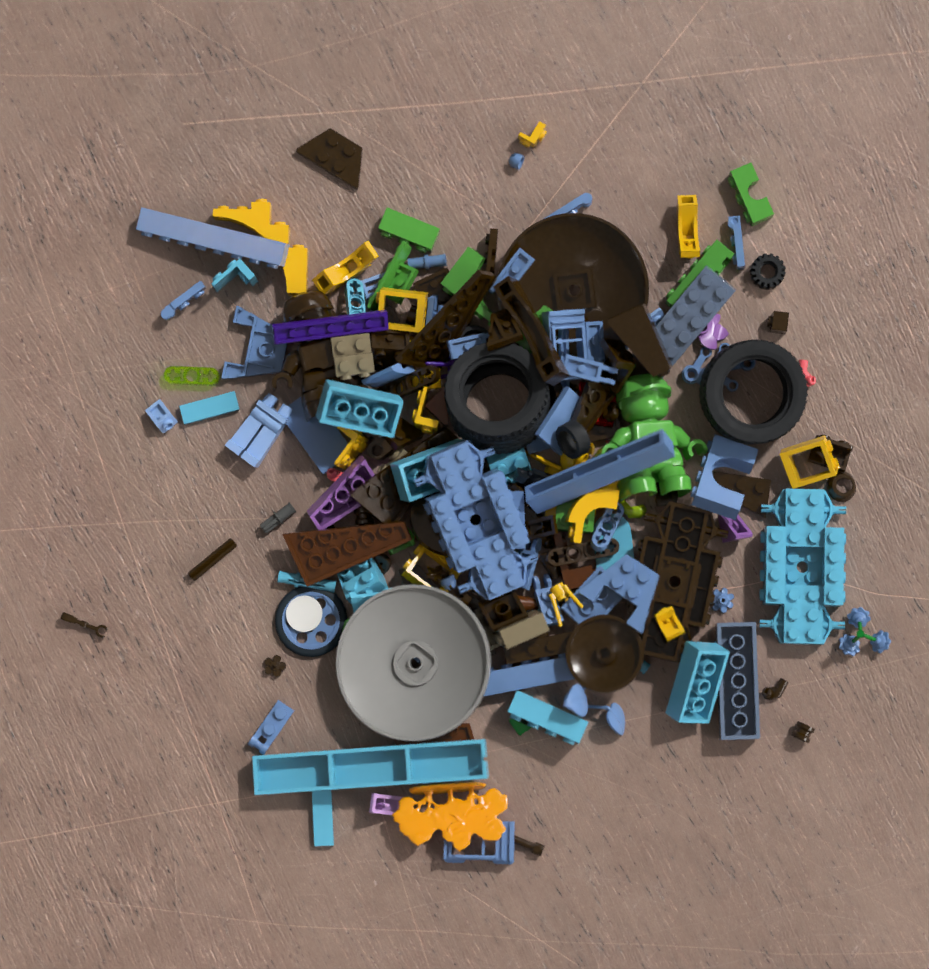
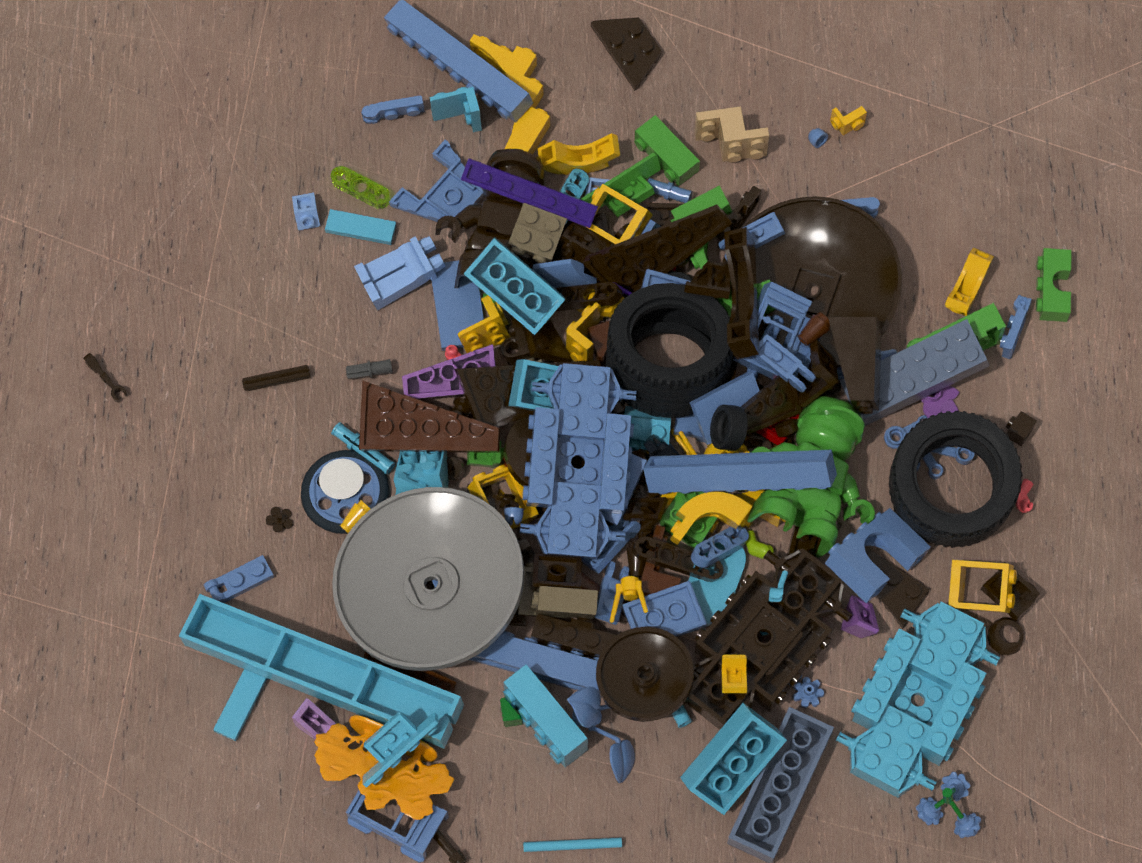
camera: 25 degrees right, 15 degrees down
(332, 638) = (355, 513): none -> yellow cone
(453, 194) = (730, 130): none -> tan bracket
(456, 796) = (393, 741): none -> medium azure bracket
(597, 329) = (814, 329): none -> reddish brown cone
(612, 796) = (572, 844): none -> medium azure bar
(630, 581) = (714, 610): medium blue wing -> none
(669, 546) = (776, 594): none -> medium azure hand
(767, 260) = (1039, 359): black tyre -> none
(775, 692) = (818, 822): dark brown arm -> none

